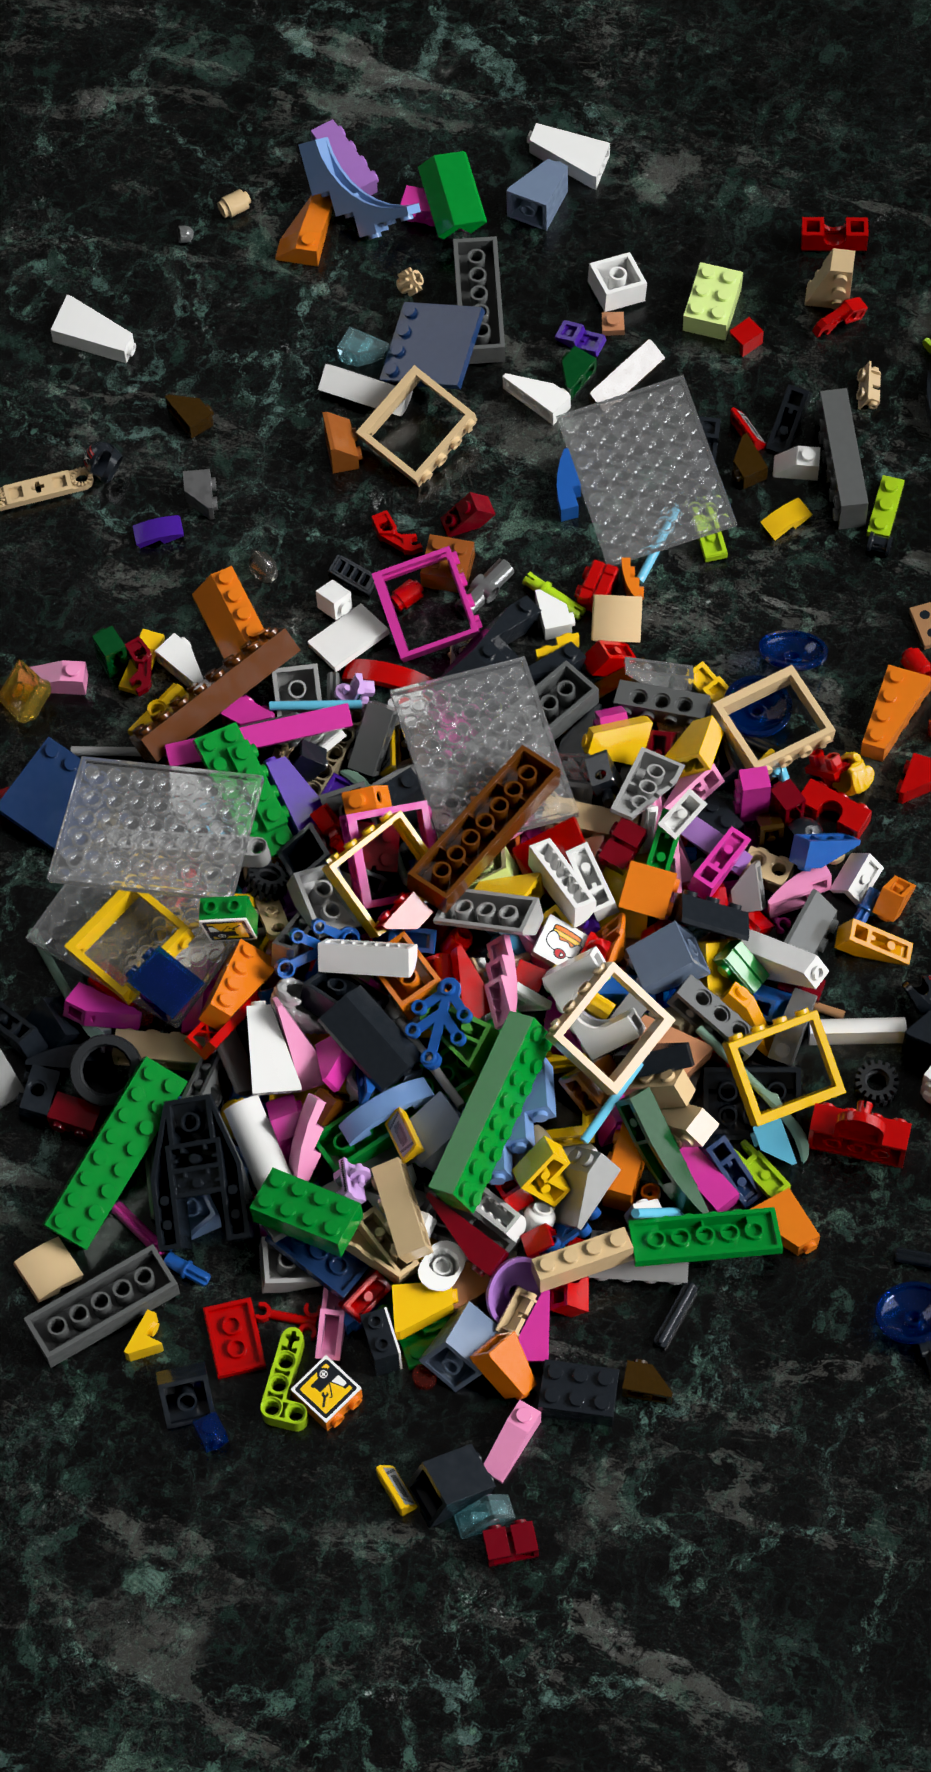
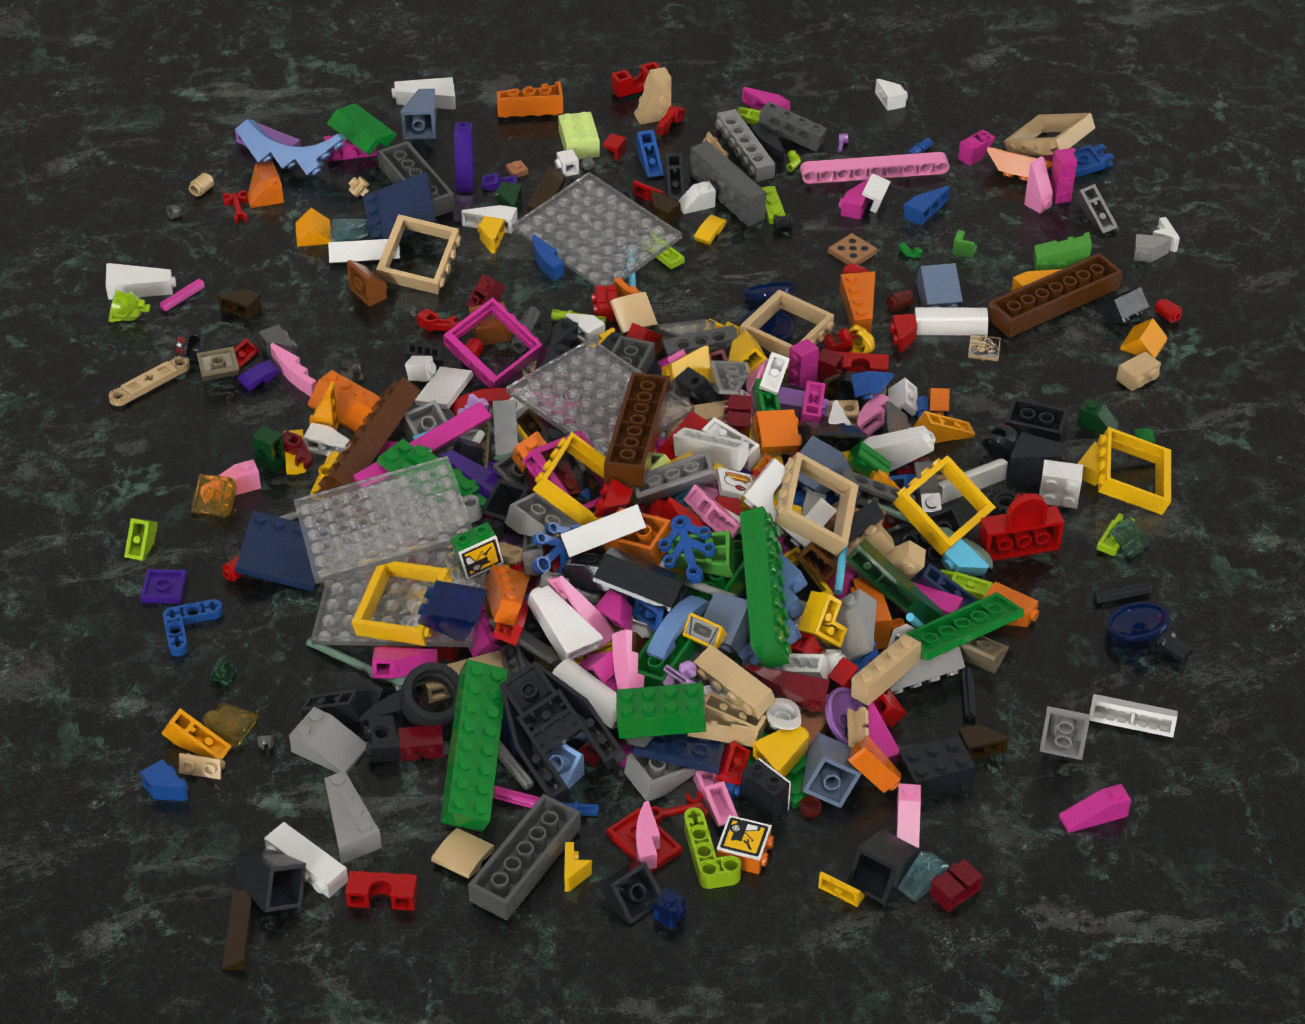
camera: 30 degrees left, 20 degrees down
(60, 369) = (126, 307): none -> lime helmet
(118, 499) = (218, 363): none -> dark tan slope
(133, 371) = (182, 294): none -> dark pink axle
(153, 491) = (245, 352): none -> red slope
(196, 628) = (327, 409): none -> light orange slope
(197, 537) = (290, 367): none -> bright pink slope
(230, 1341) = (647, 837): none -> bright pink slope
(262, 239) = (236, 199): none -> red bar
(326, 327) = (313, 229): none -> light orange slope
(329, 826) = (508, 475): red piece -> none
(516, 363) = (462, 203): none -> clear purple panel
(526, 418) = (491, 232): none -> yellow slope
(545, 295) = (464, 157): none -> dark purple slope
(617, 282) = (506, 143): white brick -> none
(675, 340) = (567, 162): none -> white brick
(686, 220) = (530, 101): none -> orange wedge
(699, 349) = (587, 163): none -> dark grey hinge
(713, 1523) = (1099, 808): none -> dark pink slope
(725, 1275) = (984, 653): none -> dark tan slope
(734, 1419) = (1064, 733): none -> light grey slope
(780, 368) = (649, 154): none -> blue slope
(832, 1425) = (1133, 715): none -> white brick
(906, 447) = (745, 145): none -> light grey brick

